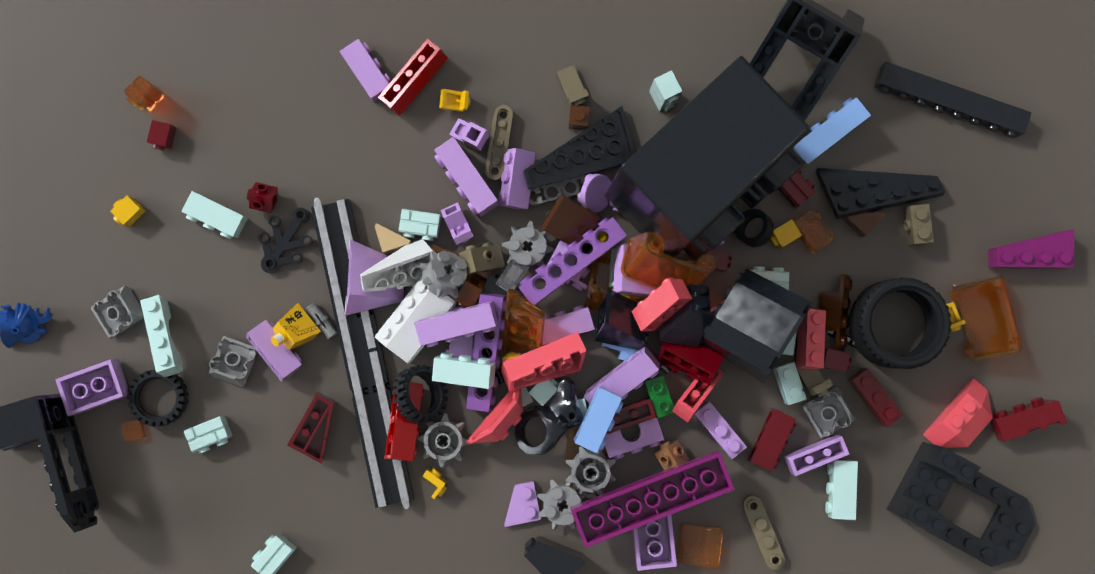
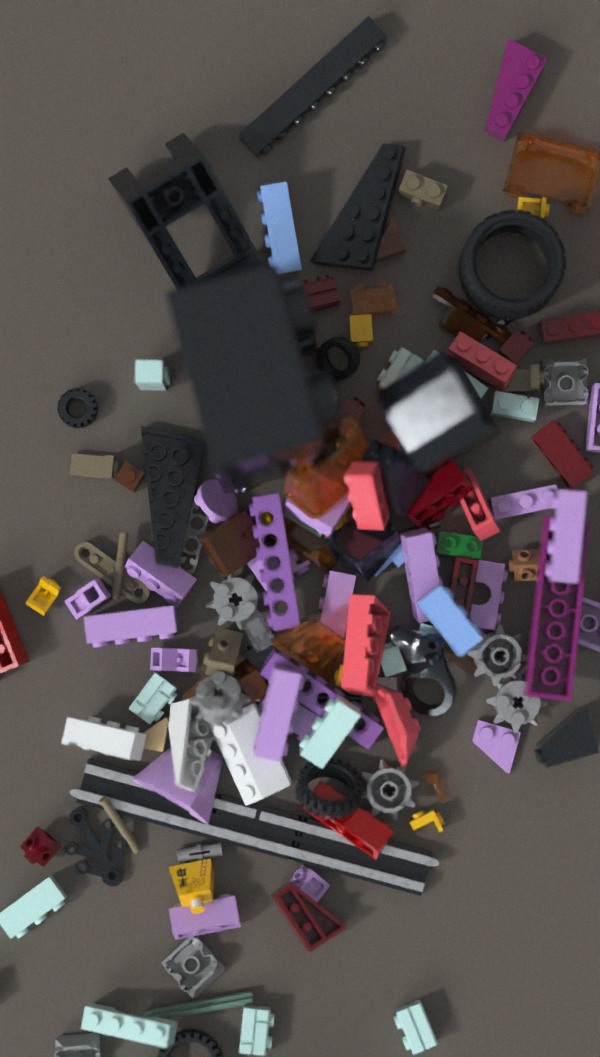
camera: 65 degrees left, 0 degrees up
(205, 383) = (201, 1006): none -> sand green axle
(310, 249) = (120, 825): none -> dark tan bar
(341, 417) = (310, 883): none -> lavender bracket
(370, 202) = (104, 738): none -> white wedge
(469, 469) = (432, 779): none -> clear orange hand
(507, 145) = (119, 566): none -> dark tan bar
(610, 39) = (67, 398): none -> black tyre
(713, 477) = (567, 536): none -> lavender brick

